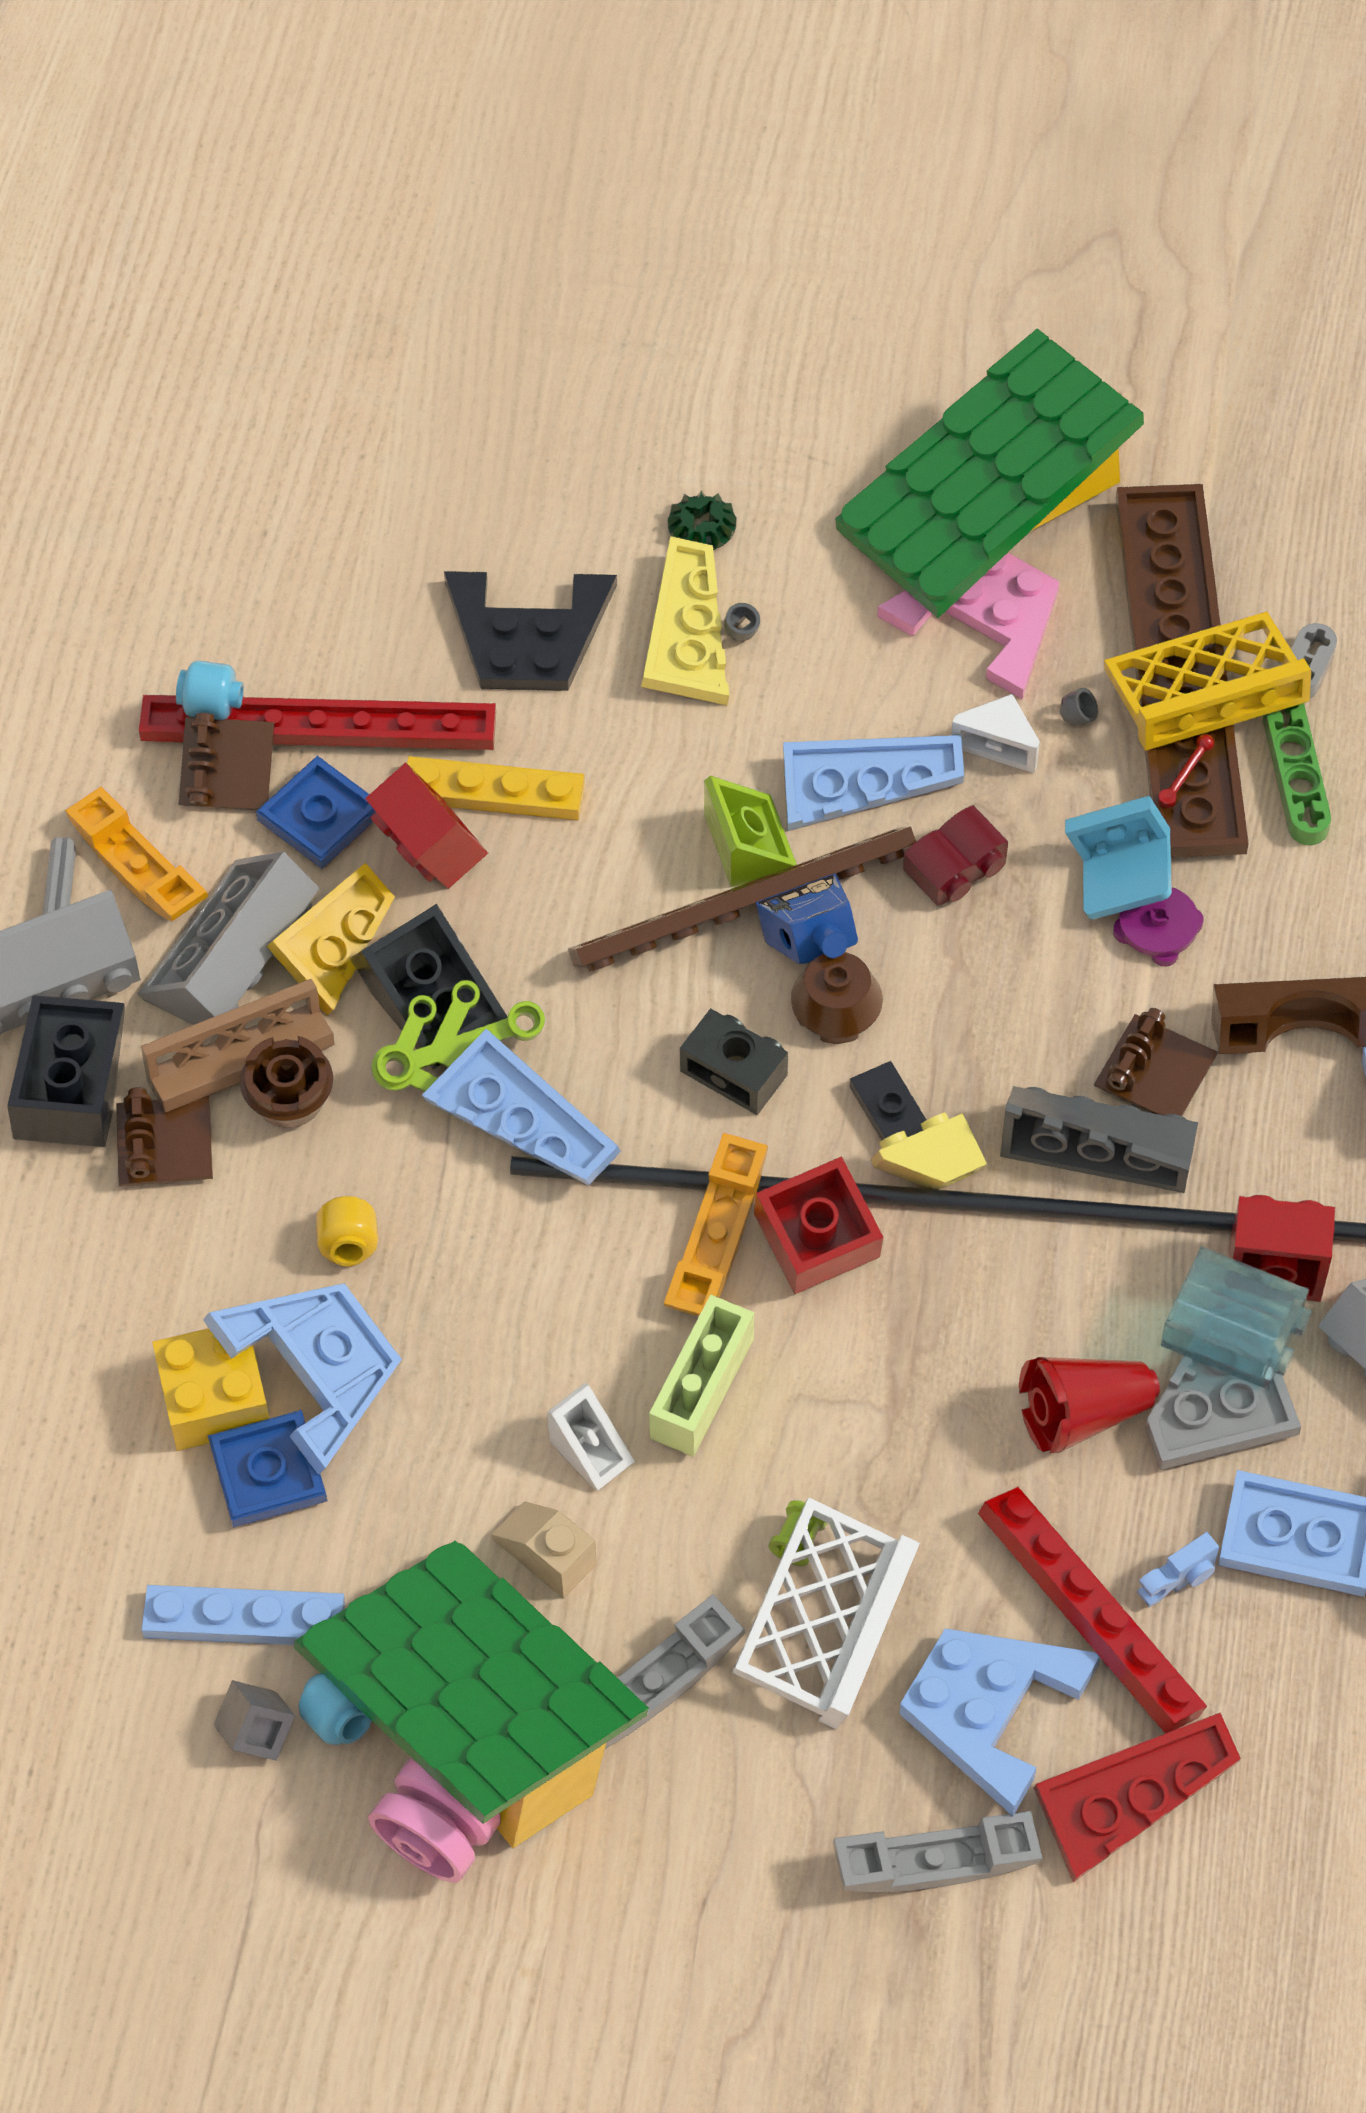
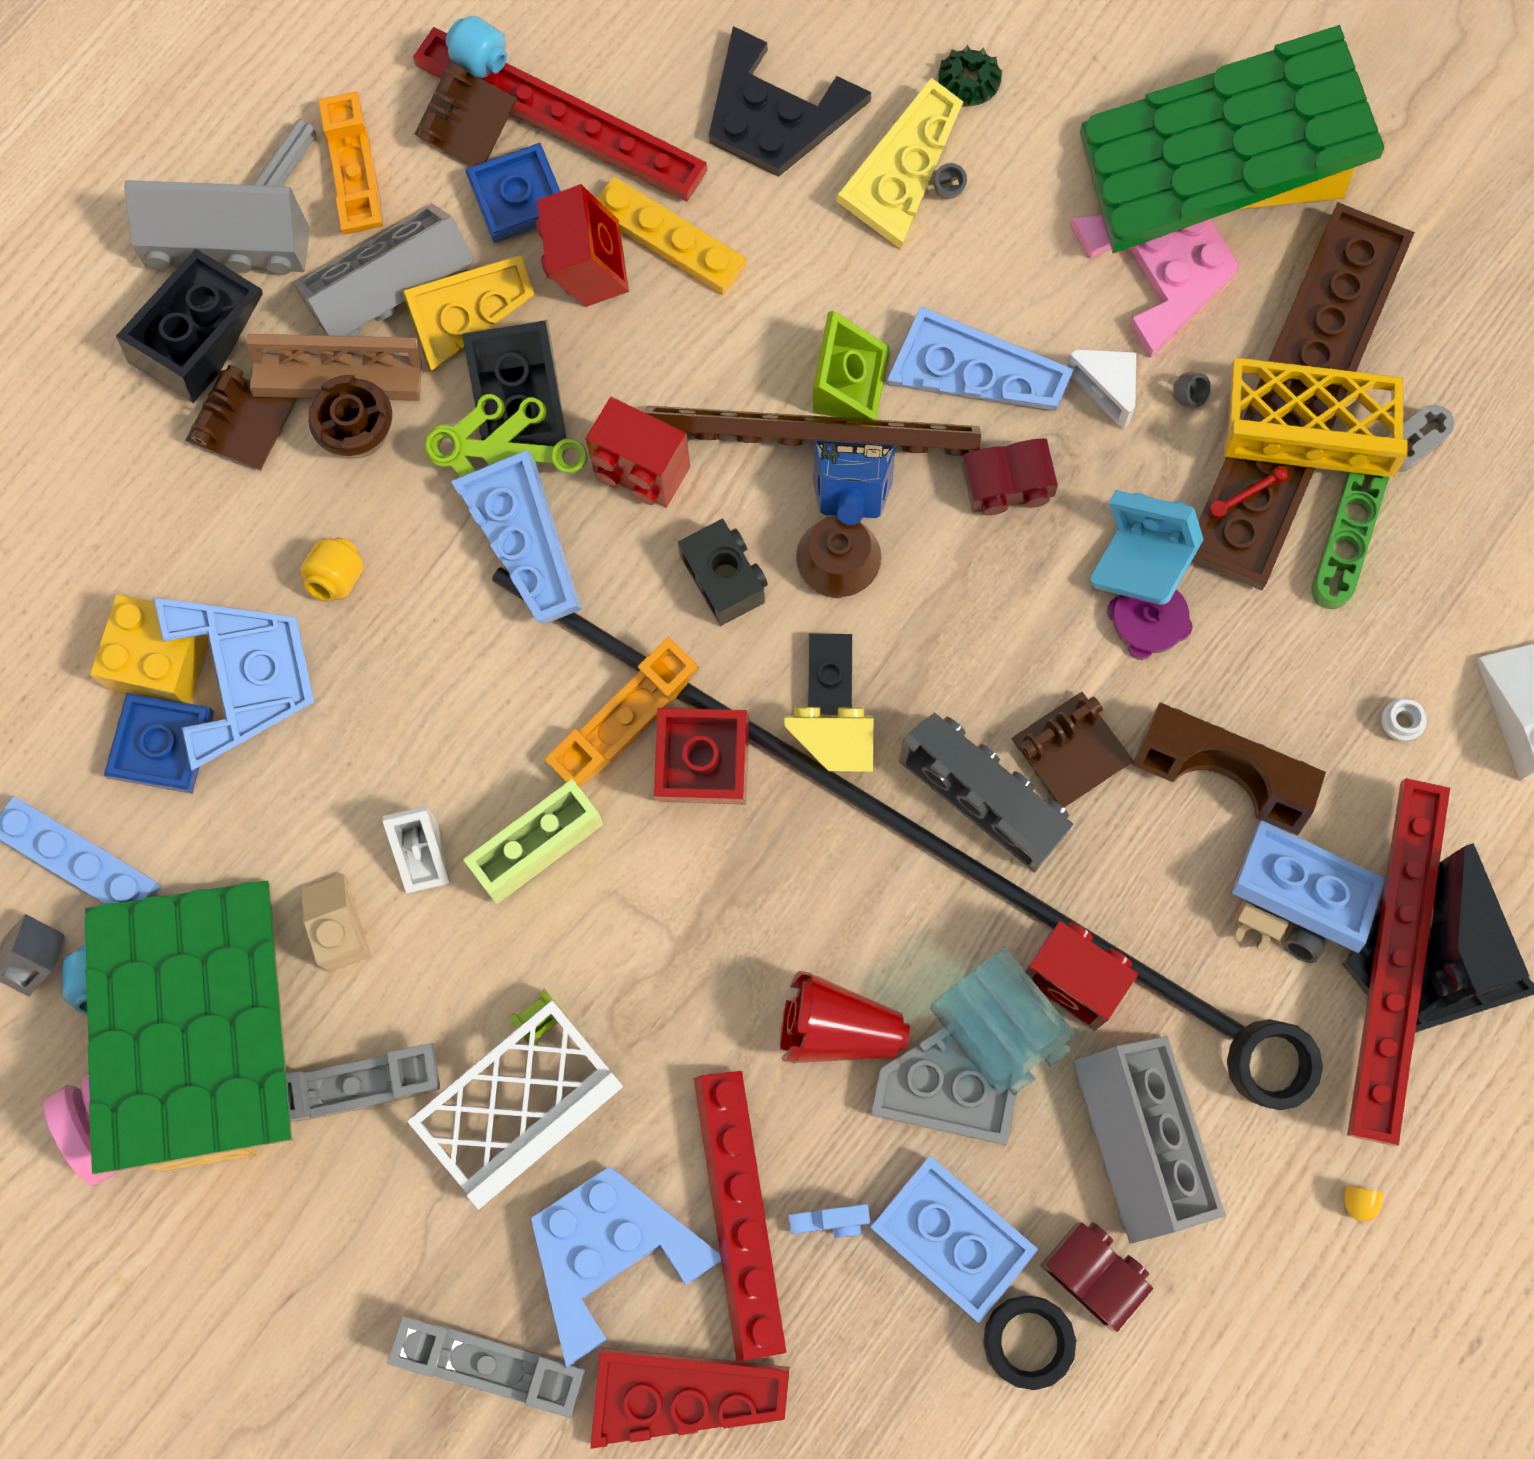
camera: 30 degrees right, 15 degrees up
(593, 986) = (638, 453): none -> red brick

